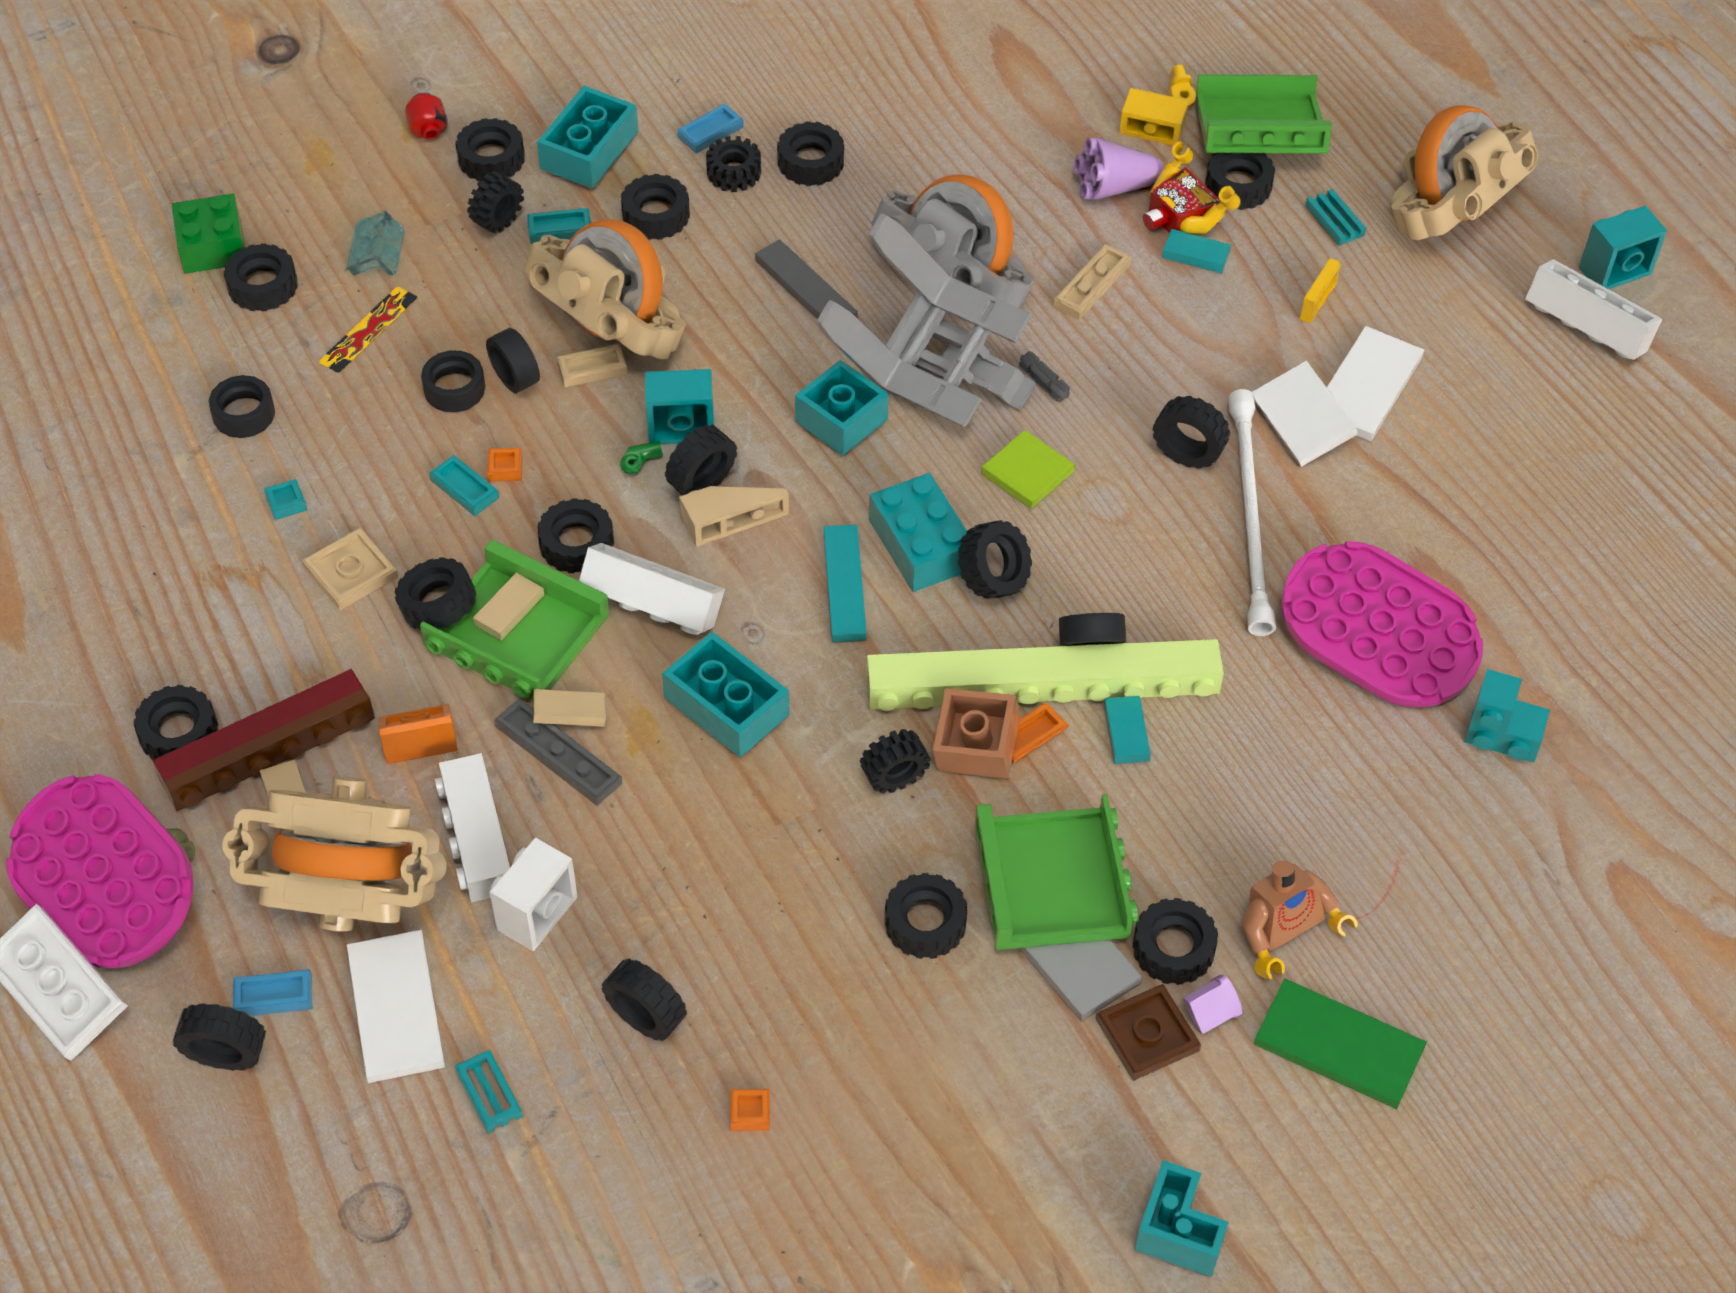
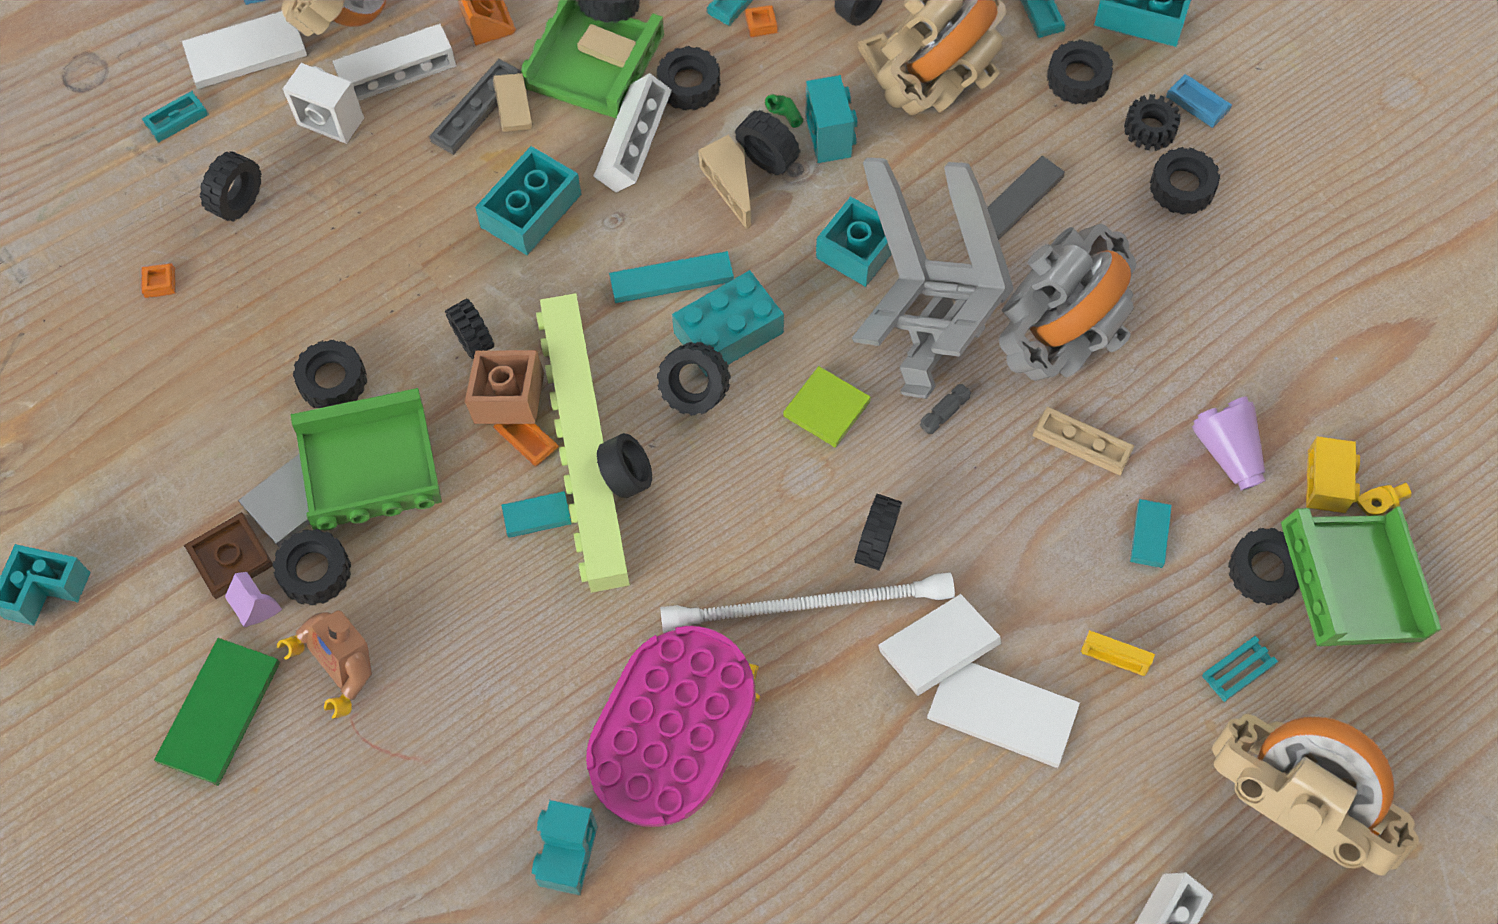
camera: 85 degrees right, 10 degrees up
(1183, 201) = (1211, 508): torso -> none

